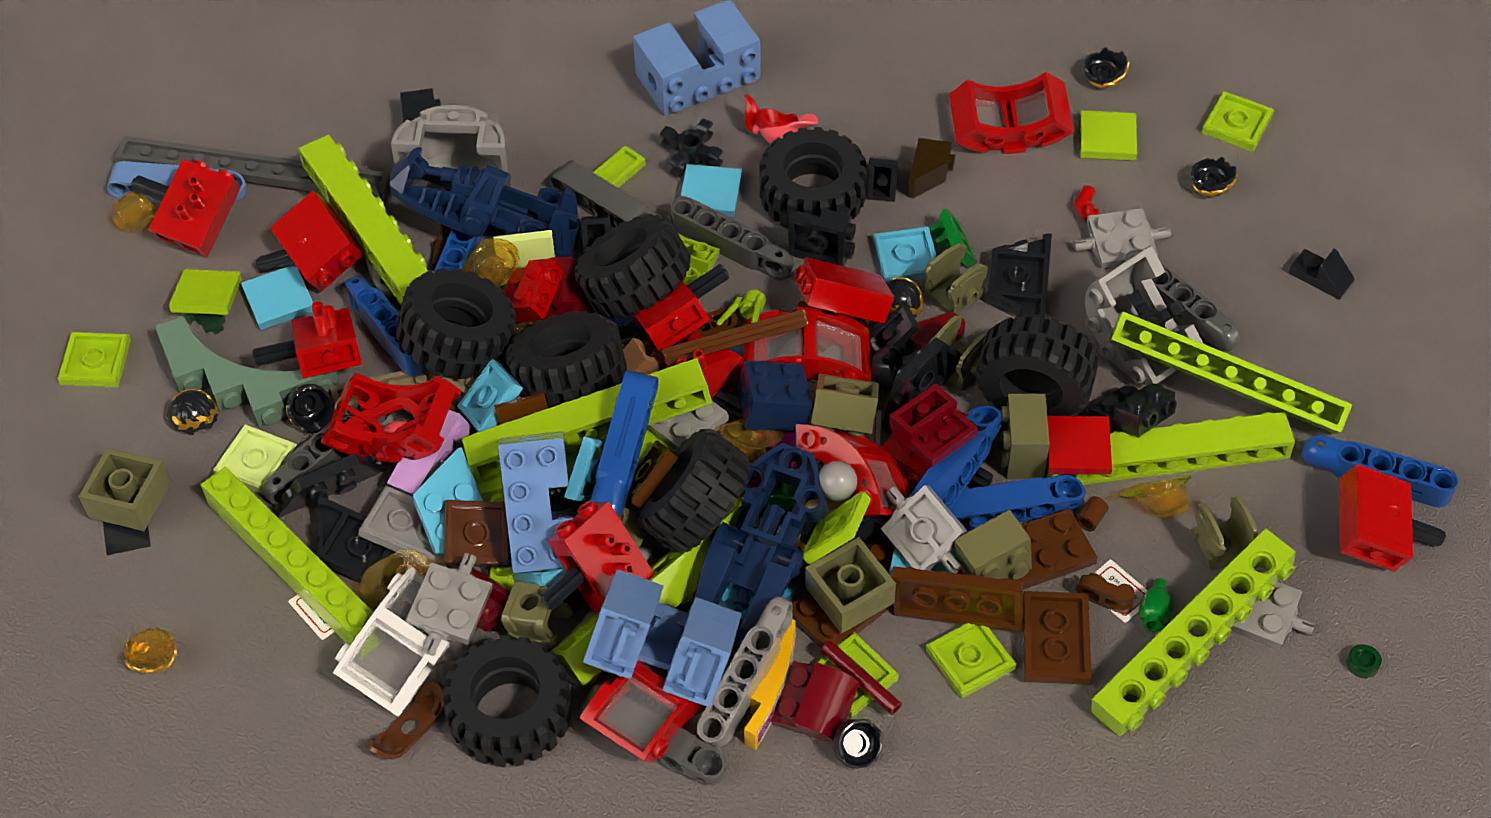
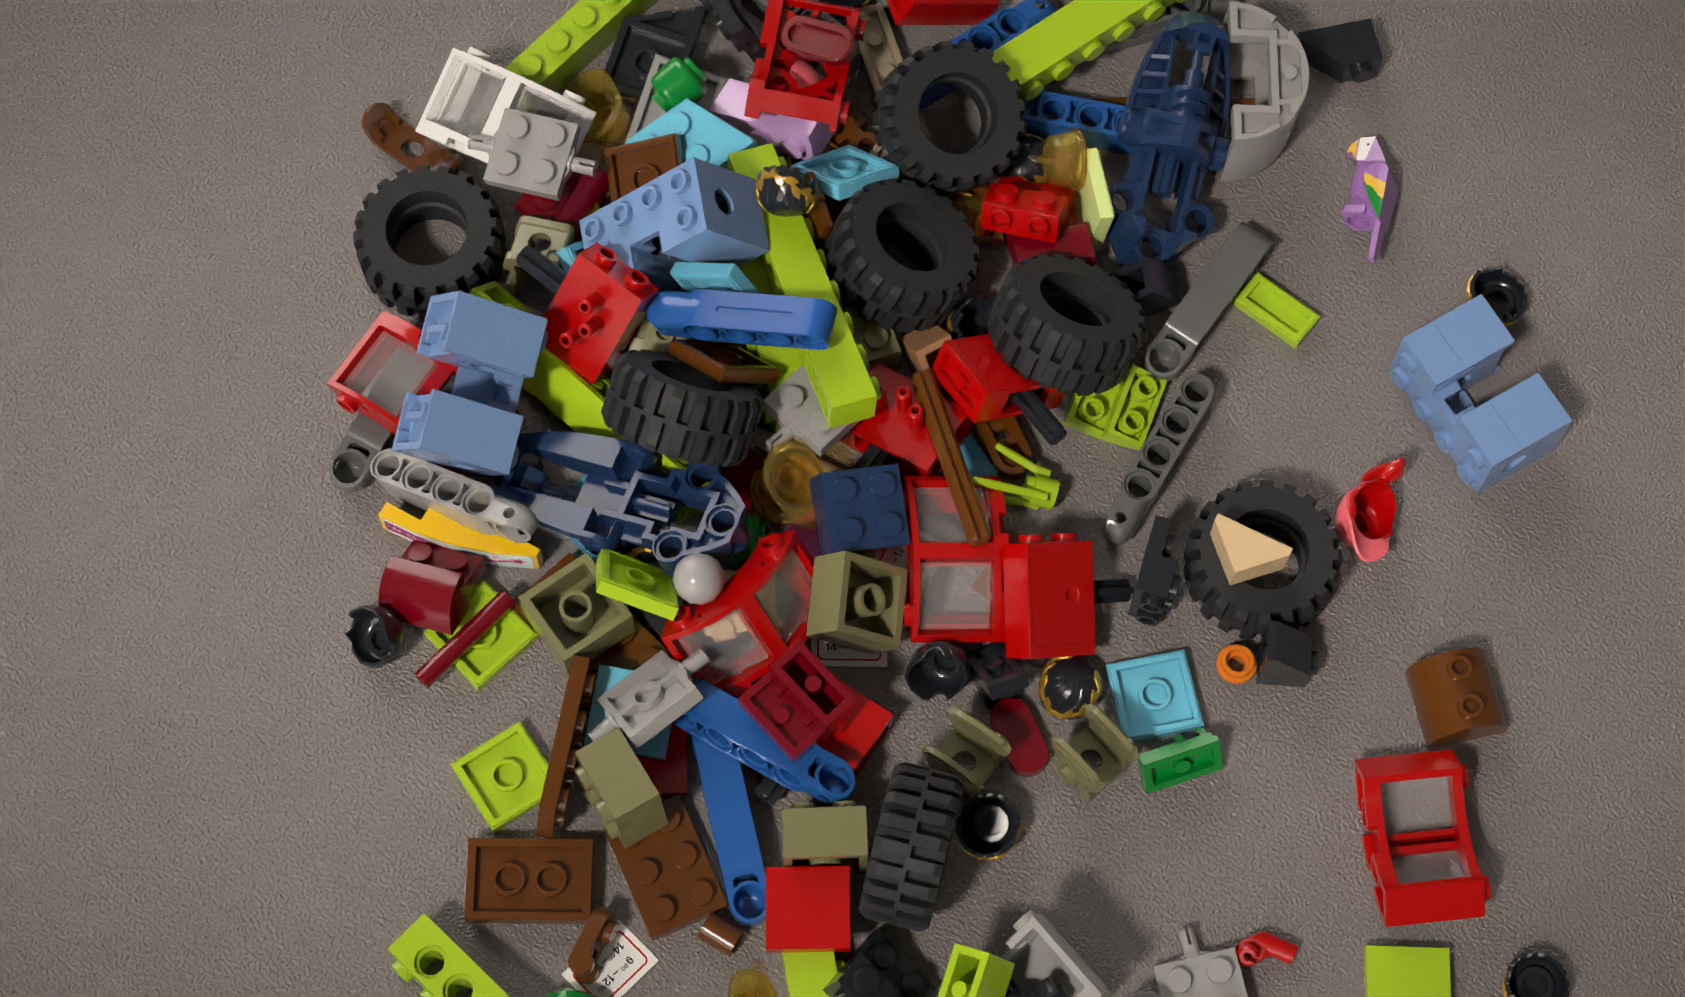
camera: 85 degrees right, 15 degrees up
(376, 402) = (818, 40): none -> dark red tile
(394, 507) = (677, 82): none -> green head
(520, 410) = (785, 191): none -> black hair
(532, 107) = (1371, 192): none -> medium lavender animal
(619, 50) = (1502, 293): none -> black hair
(691, 147) = (1347, 414): black pin -> none
(713, 187) = (1249, 433): medium azure tile -> none
(819, 169) = (1245, 551): none -> tan slope
(883, 206) = (1239, 653): none -> orange plate
(910, 94) = (1455, 697): none -> reddish brown brick
(930, 165) = (1312, 723): dark brown slope -> none
(930, 366) = (919, 709): black wing -> none
(1021, 276) = (1119, 852): black wing -> none

